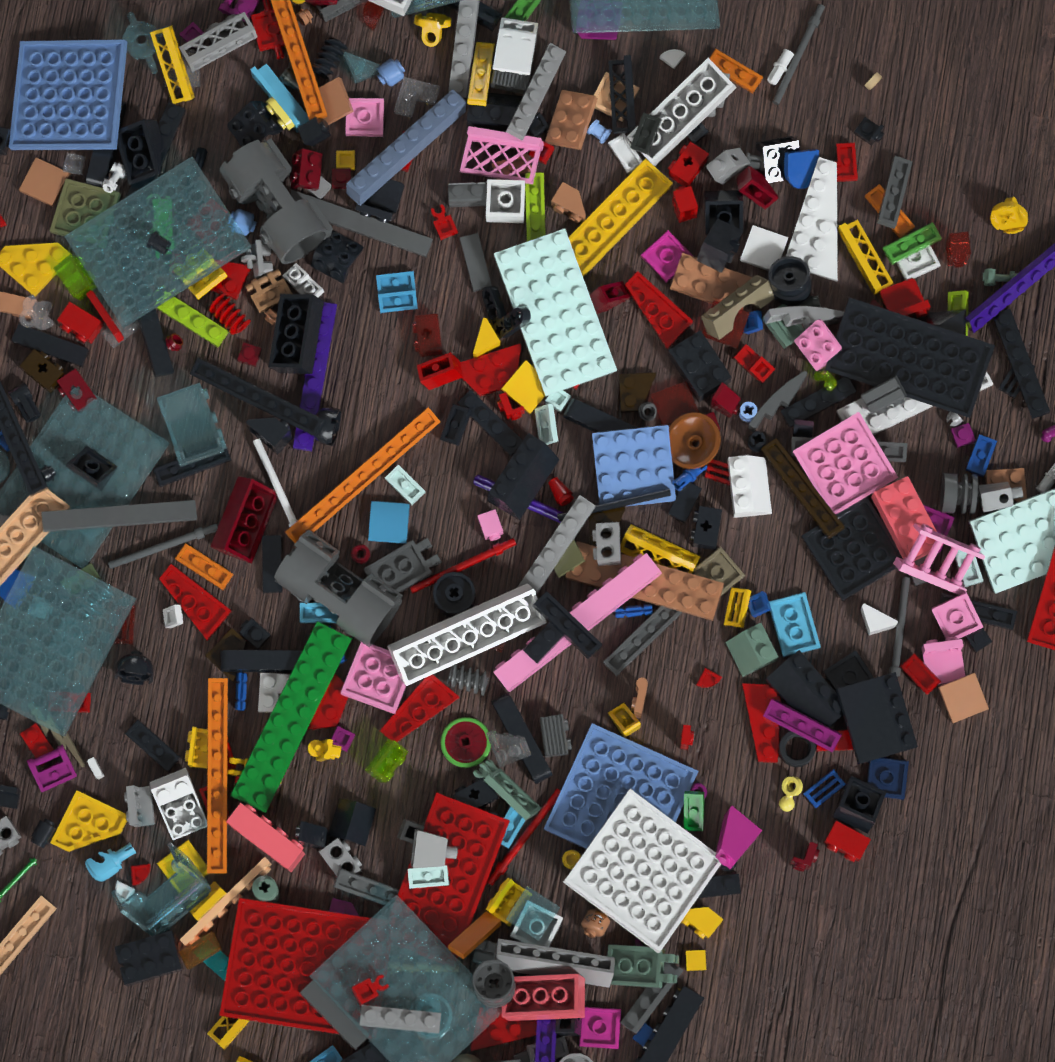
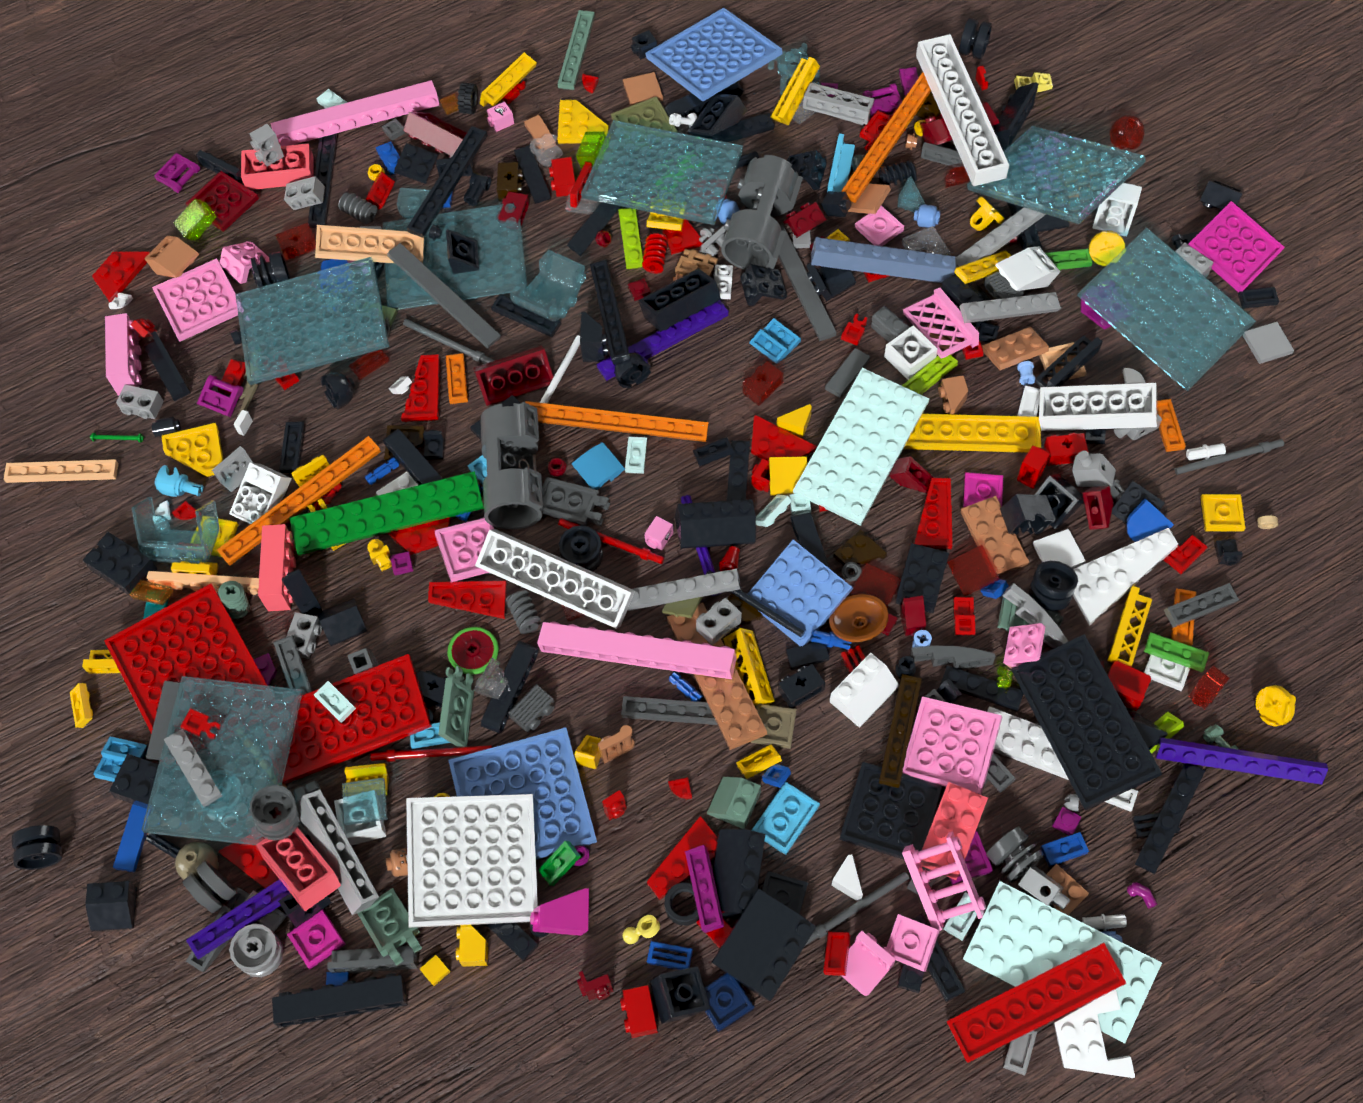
camera: 50 degrees right, 15 degrees down
(74, 164) = (670, 94): clear tile -> none
(158, 243) = (659, 166): black bush -> none
(283, 119) = (826, 168): light yellow plate -> none
(387, 761) = (407, 604): clear neon green brick -> none
(430, 850) = (355, 683): light grey torso -> none
(439, 371) = (742, 407): red brick -> none
(474, 935) = (314, 774): orange tile -> none
(502, 320) = (825, 416): black beam -> none
(543, 643) = (596, 636): black plate -> none
(567, 625) = (624, 639): black plate -> none
(645, 133) = (1055, 394): pearl dark grey plate -> none
(720, 318) = (971, 557): dark tan arch -> none
(837, 104) = (1222, 512): none -> yellow plate
(884, 395) = (1034, 726): dark grey brick -> none
(963, 697) = (849, 1007): nougat tile -> none

